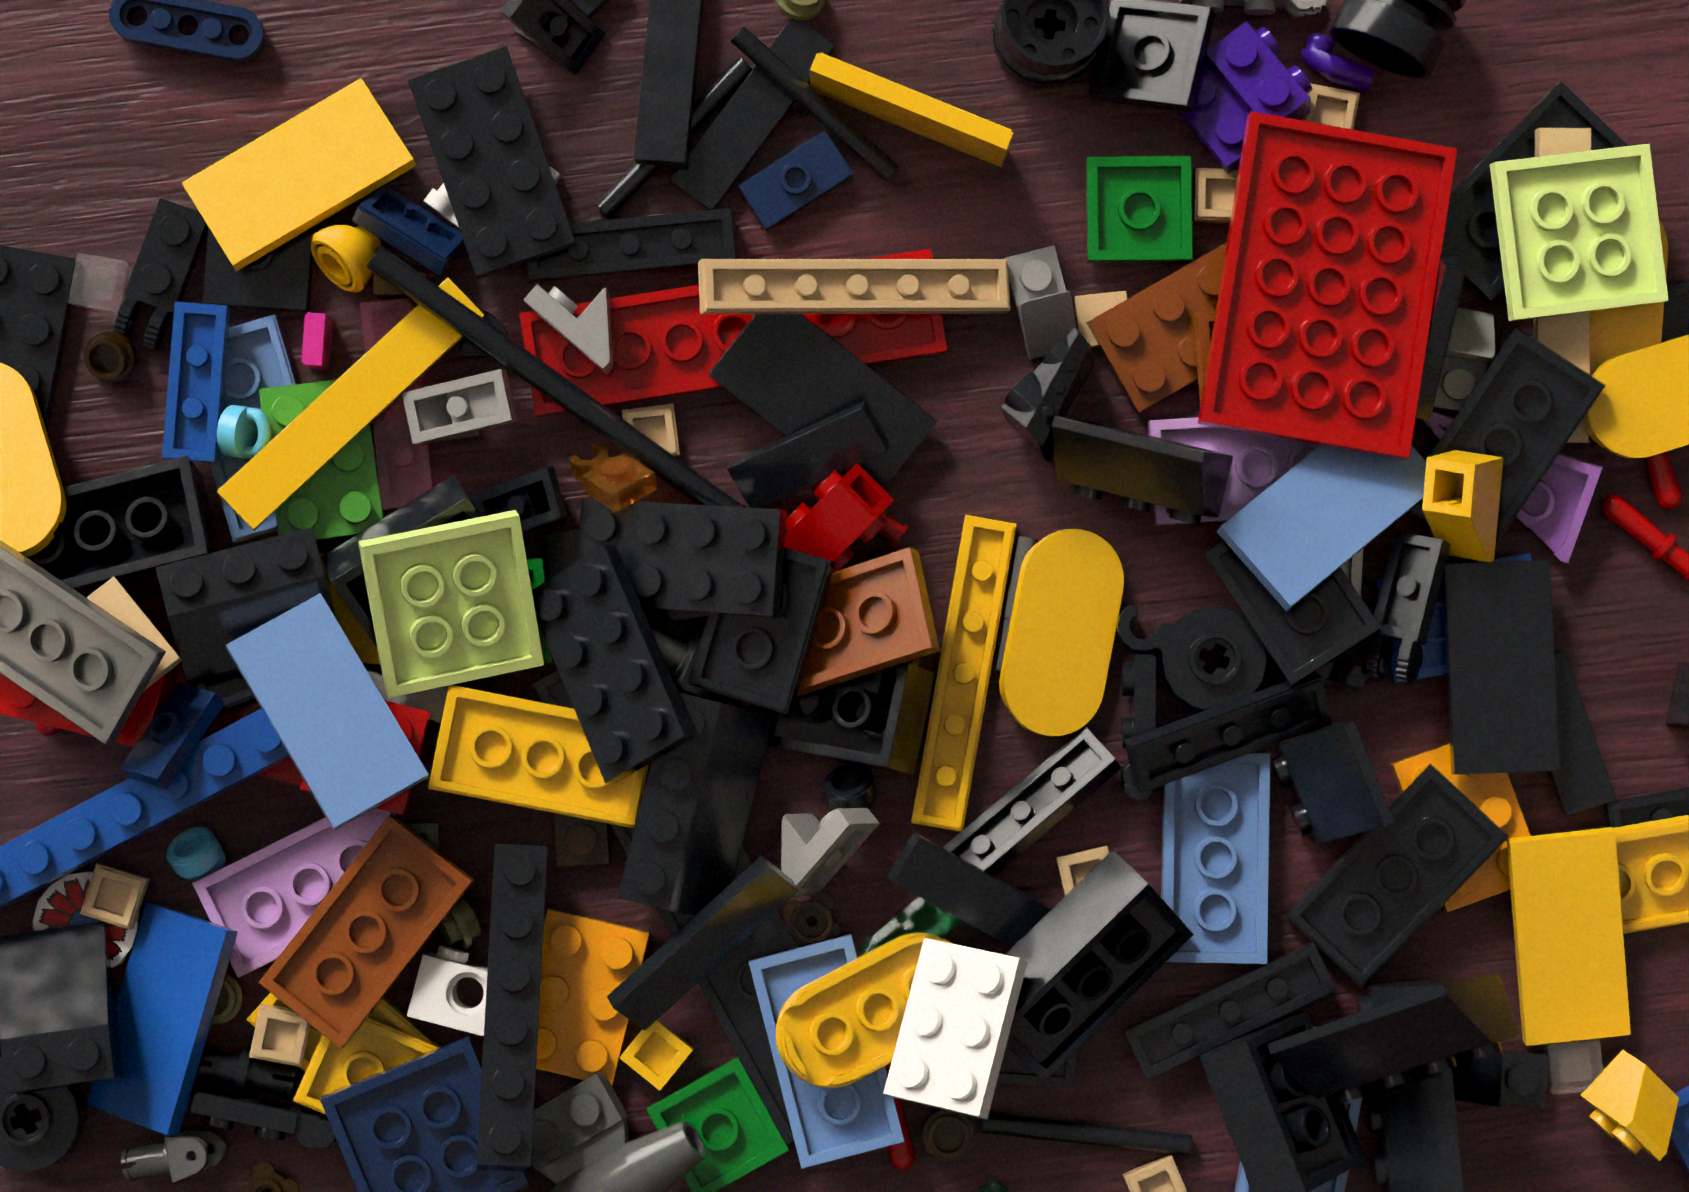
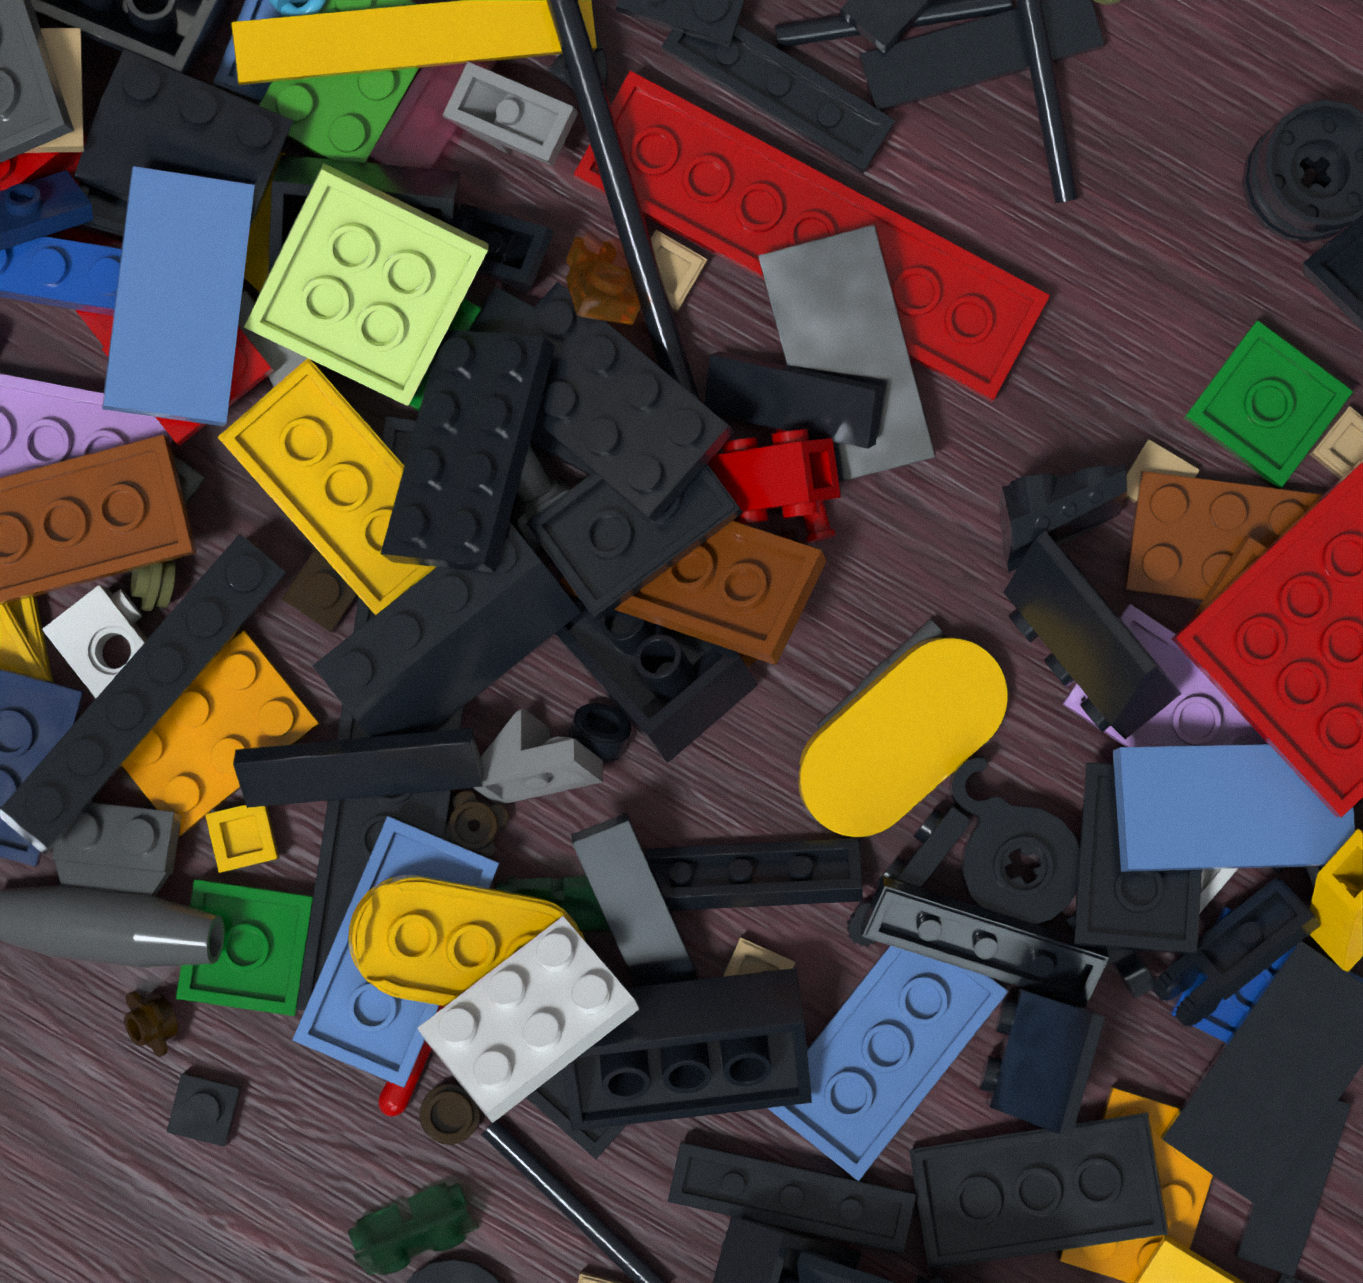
camera: 45 degrees right, 0 degrees up
(588, 333) = (682, 133): light grey slope -> none
(795, 180) = (974, 141): dark blue plate -> none
(853, 286) = (952, 275): tan tile -> none
(910, 109) = (1127, 153): yellow tile -> none
(963, 673) = (784, 705): yellow tile -> none
(1040, 300) = (1115, 417): light grey slope -> none

